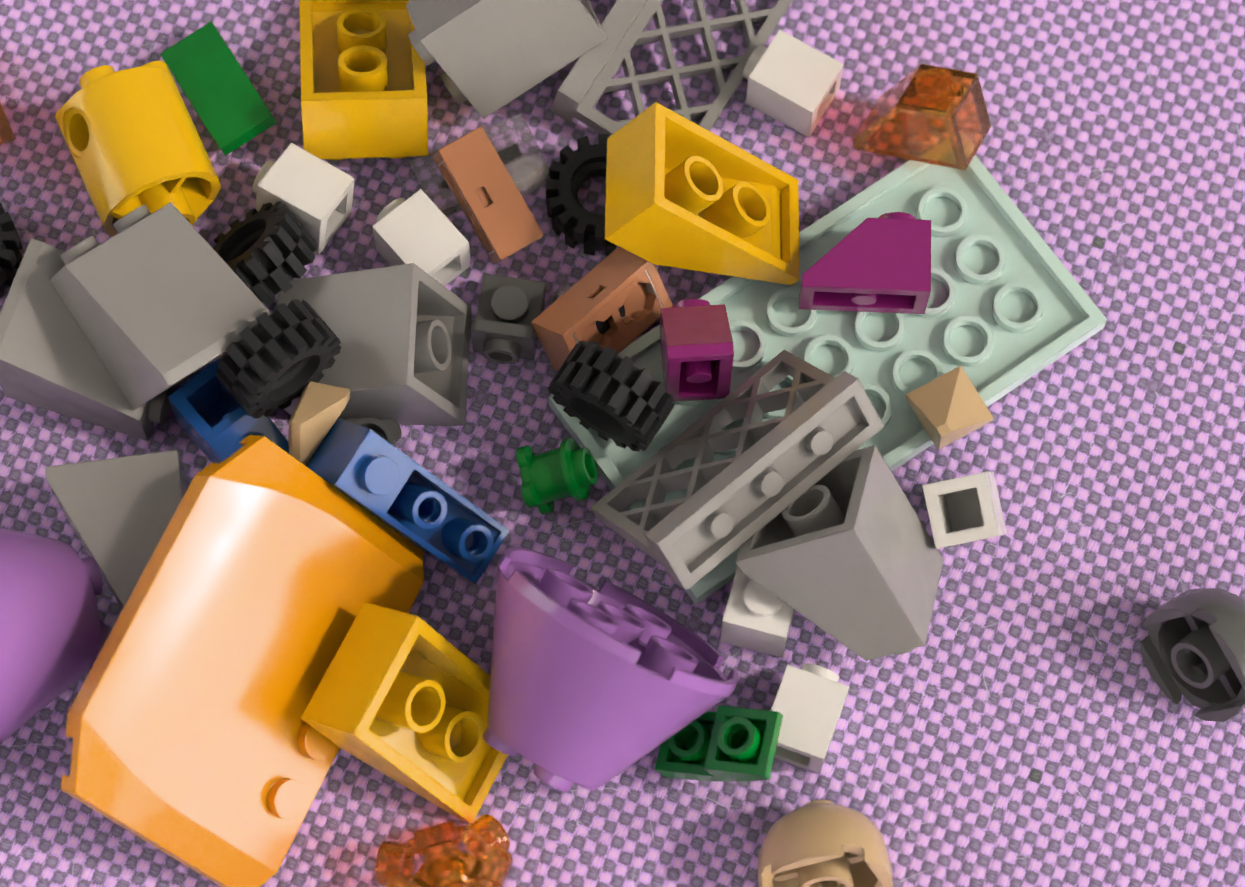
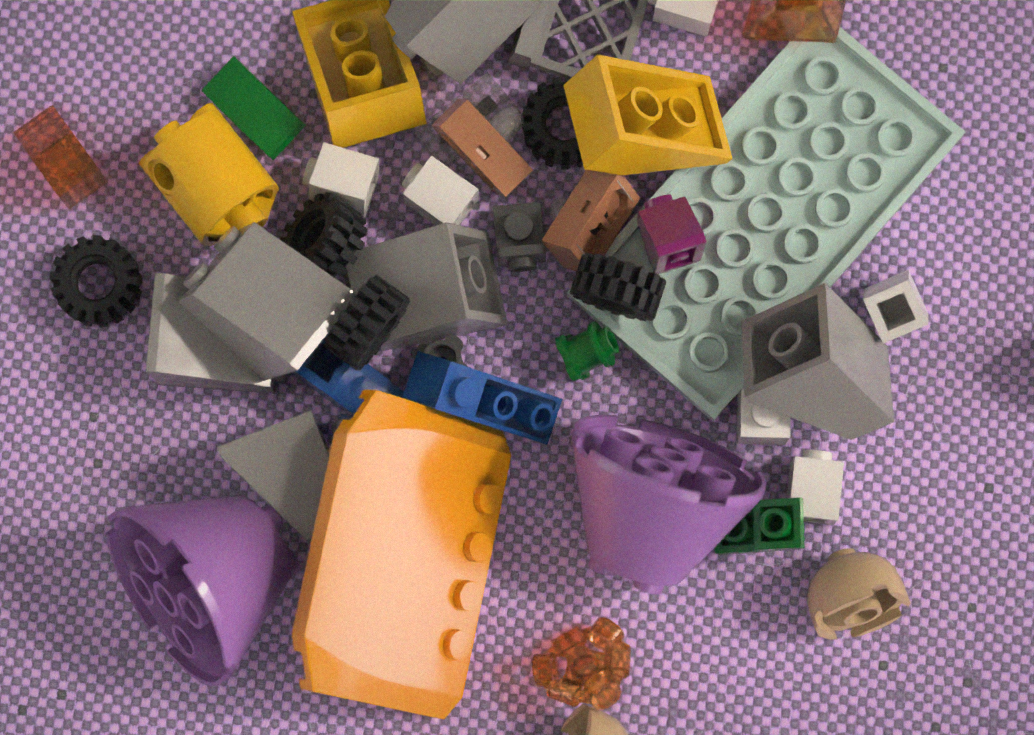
camera: 10 degrees left, 10 degrees up
(314, 417) = (402, 356): tan slope -> none
(410, 709) = (529, 557): yellow slope -> none
(743, 493) = (743, 332): light grey fence -> none
(874, 269) = (789, 136): magenta slope -> none
(949, 407) = (865, 229): tan slope -> none

